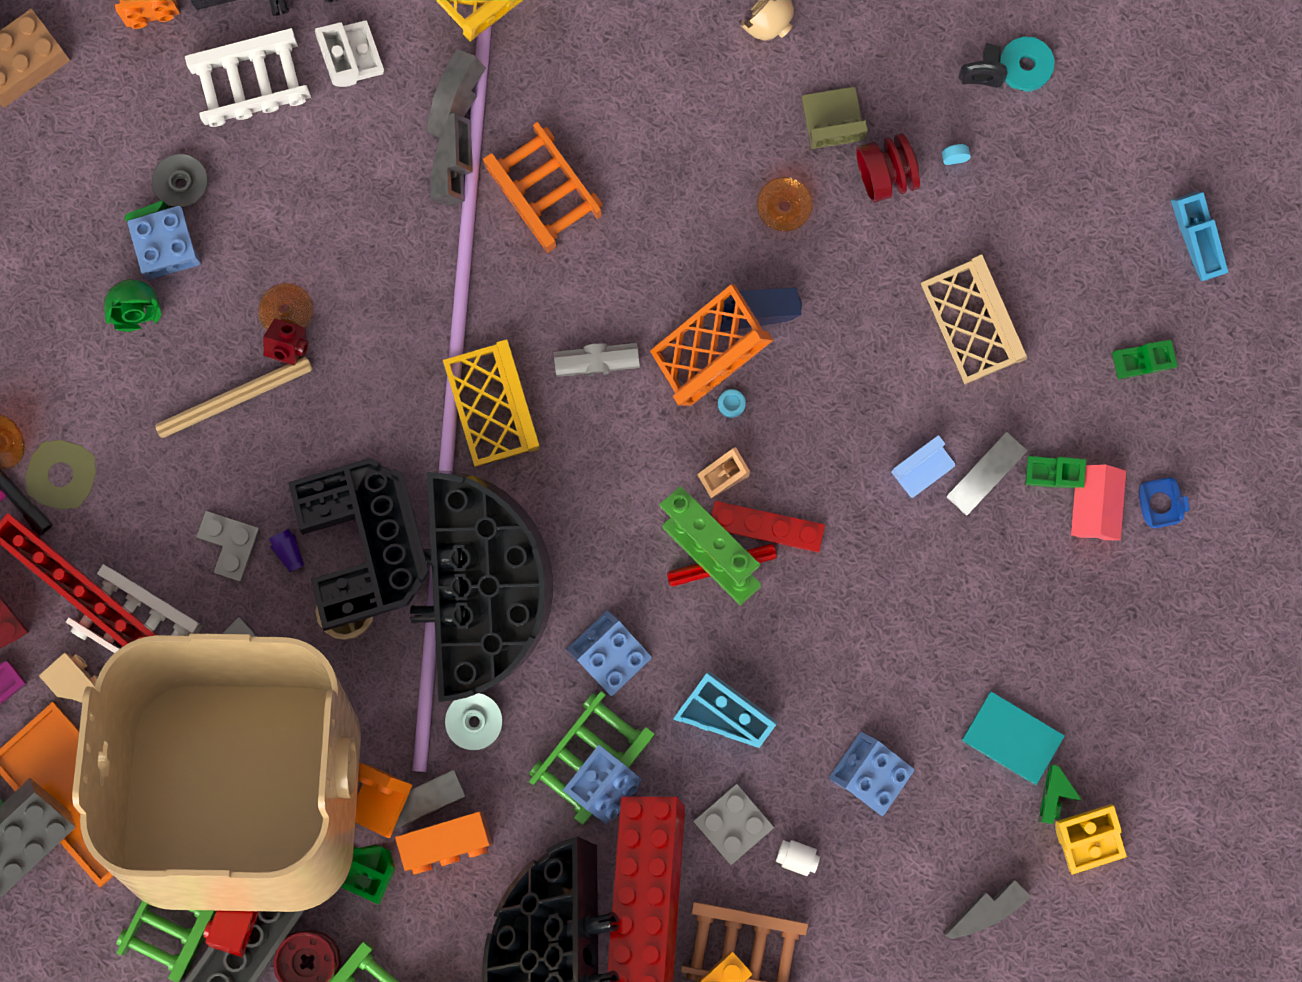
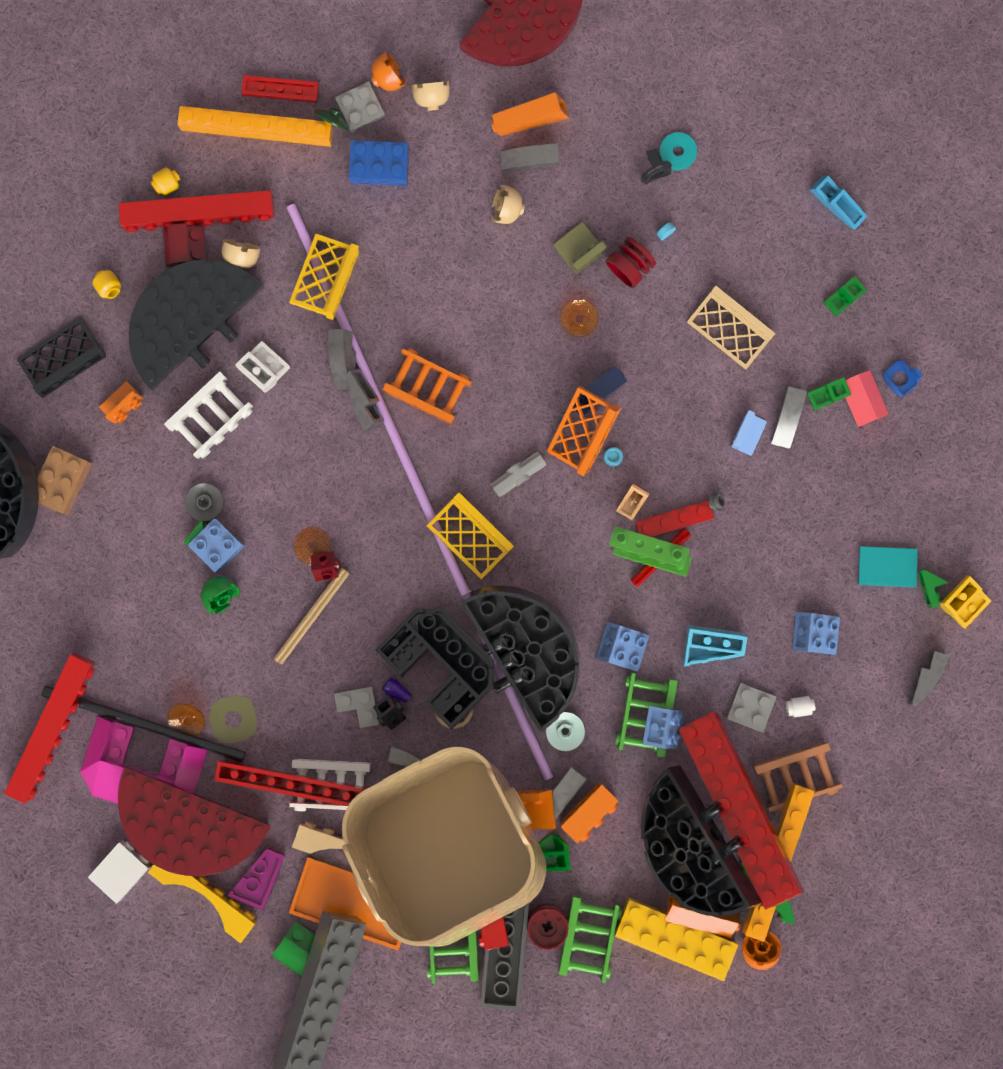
camera: 30 degrees left, 5 degrees up
(261, 572) = (392, 715): none -> black brick
(833, 531) = (716, 501): none -> dark grey plate

